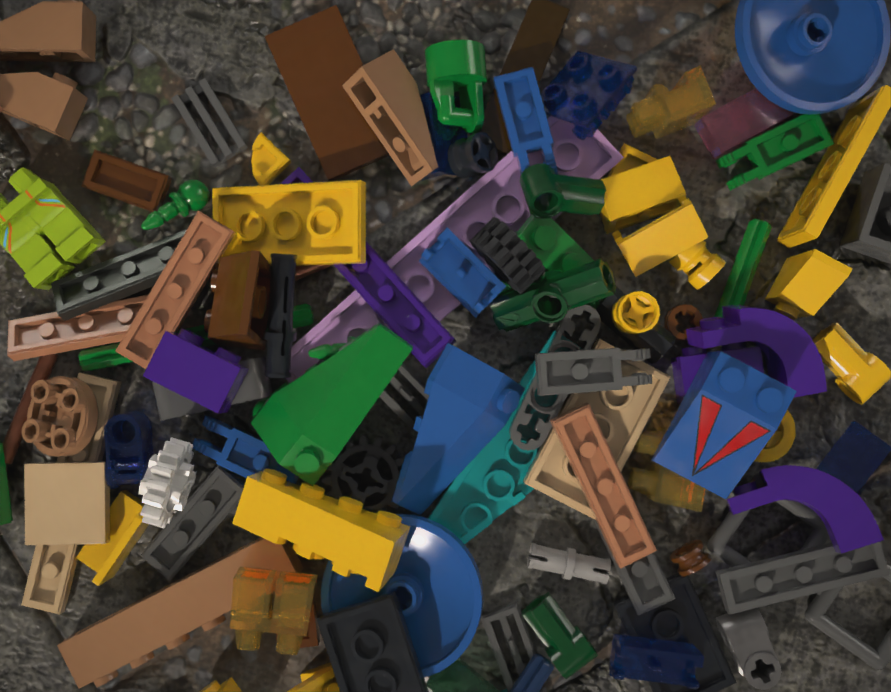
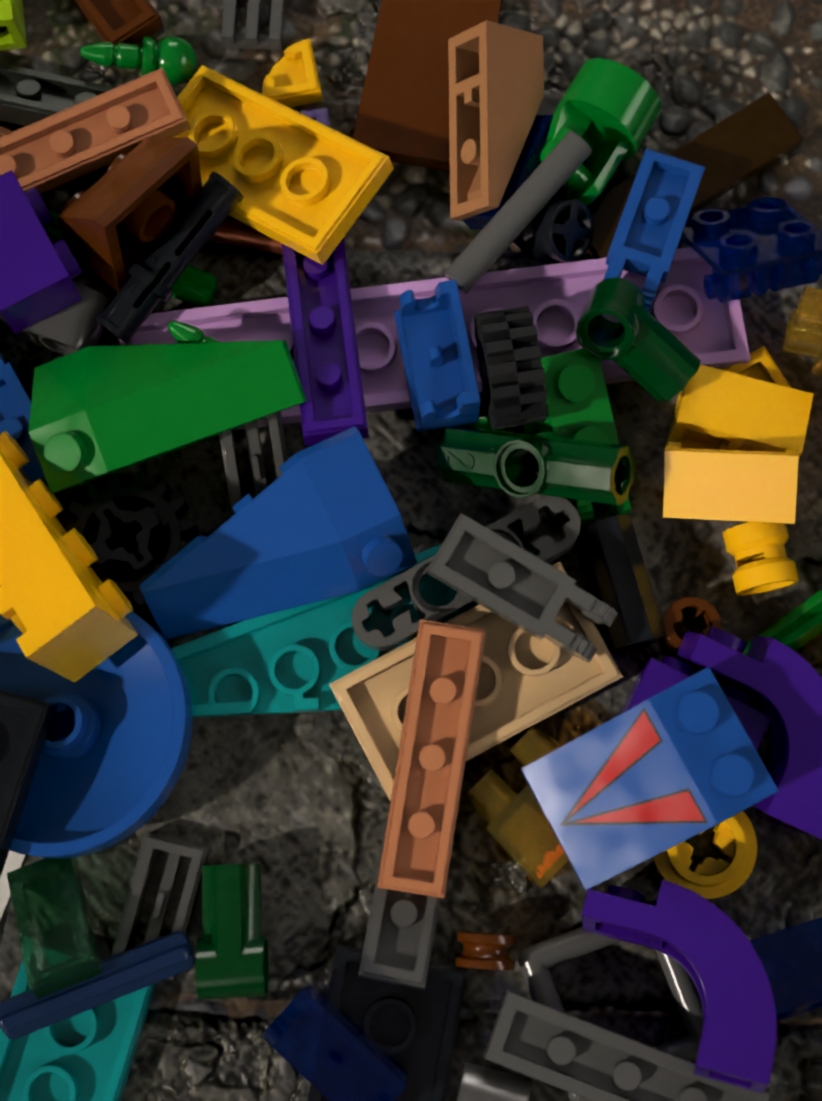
camera: 35 degrees right, 10 degrees down
(450, 161) = (518, 211): none -> dark grey piece
(569, 563) = (314, 843): light grey pin -> none
(643, 311) = (635, 542): yellow wheel -> none

